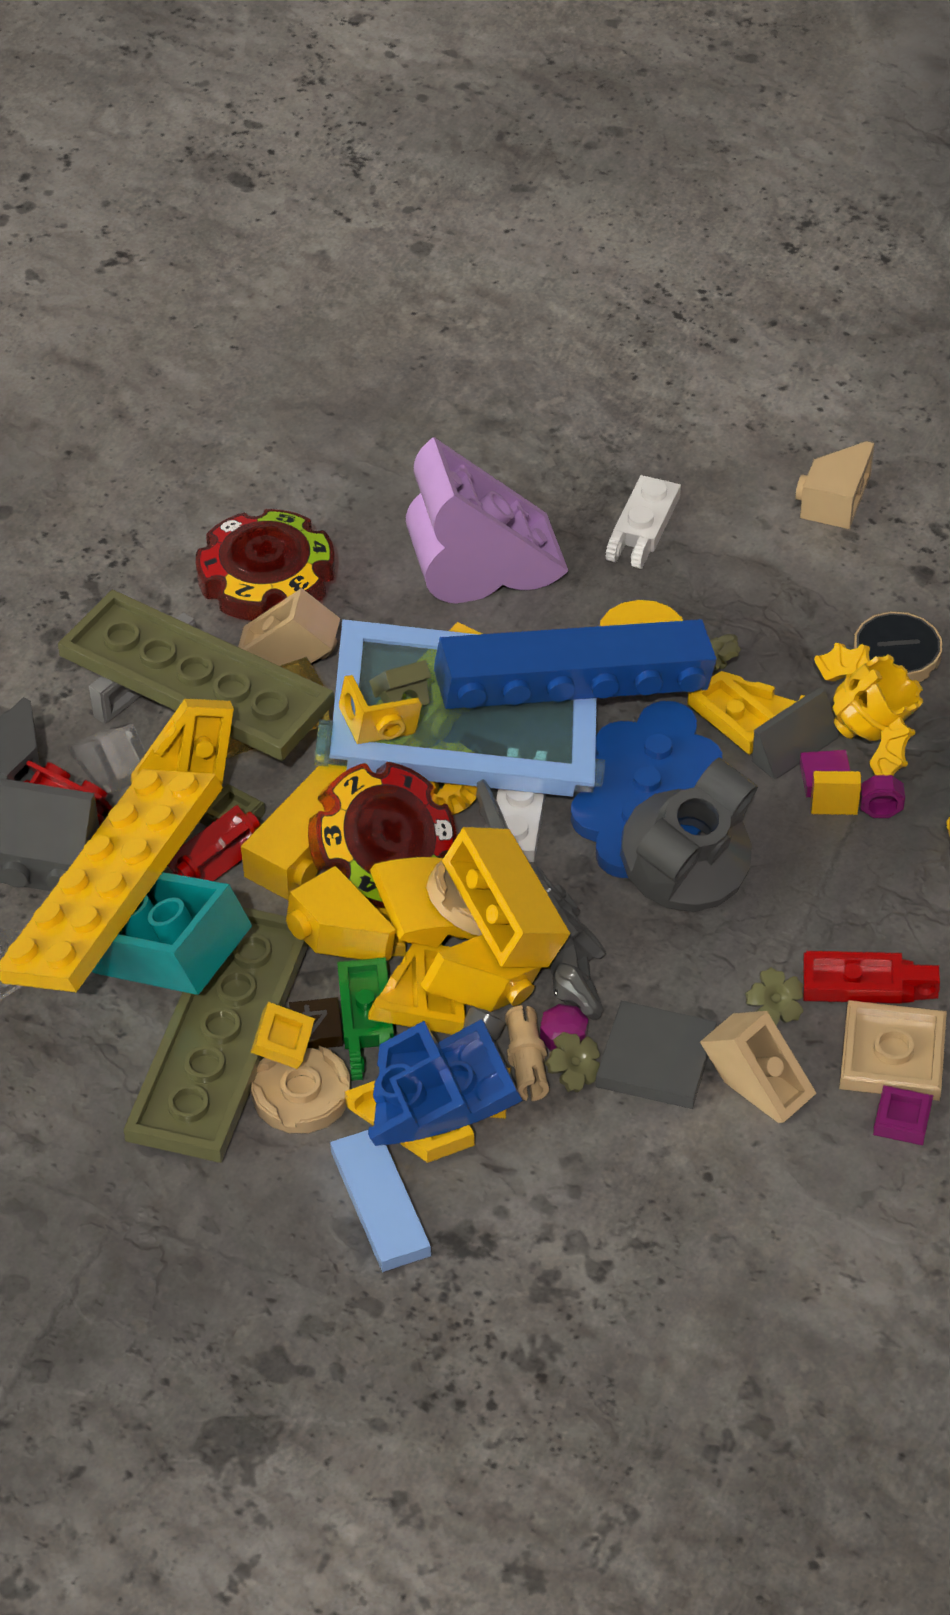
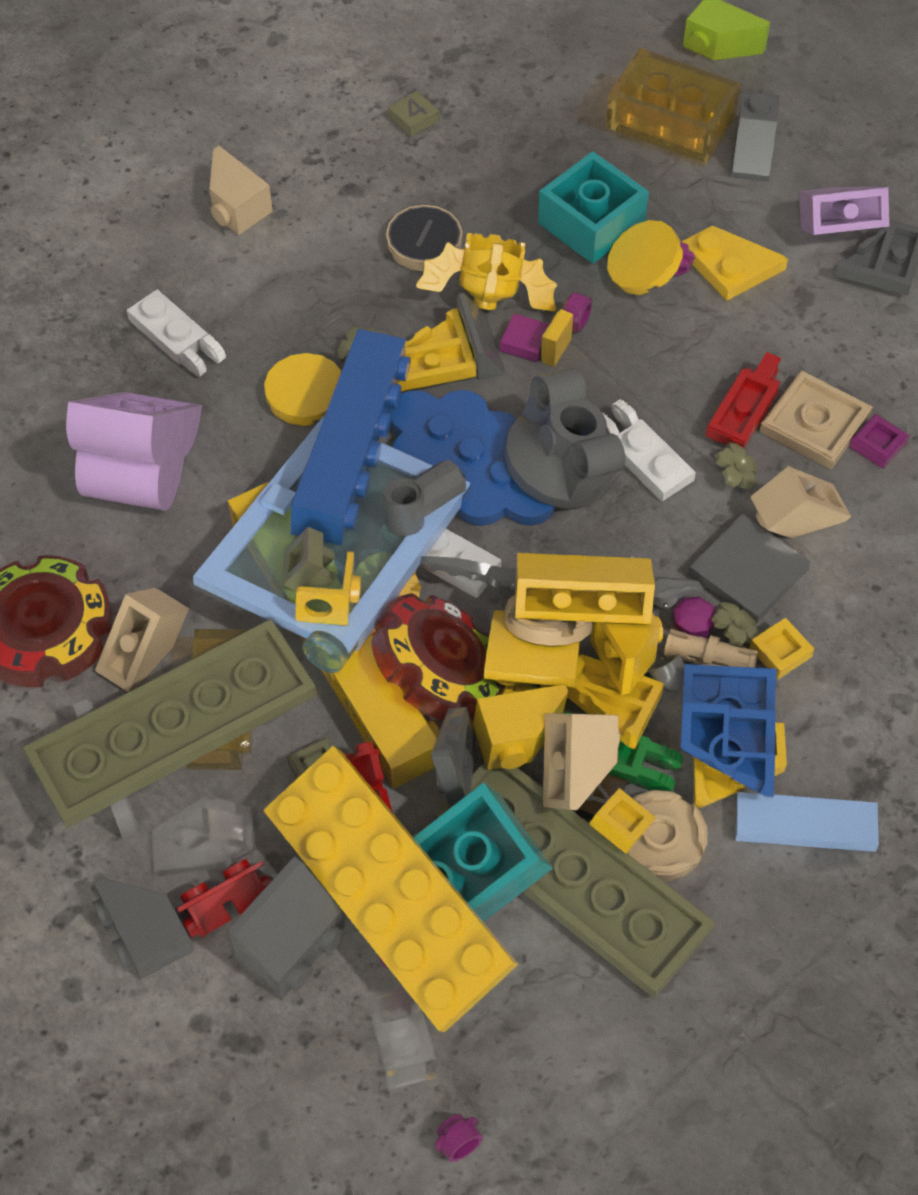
camera: 65 degrees left, 10 degrees up
(192, 739) = (263, 761): yellow wing -> none
(267, 872) = (455, 755): none -> dark grey wing
(326, 964) = (577, 756): none -> tan slope
(522, 737) = (413, 499): none -> dark grey piece
(568, 1108) = (782, 648): none -> yellow plate
(745, 920) = (648, 454): none -> white hinge

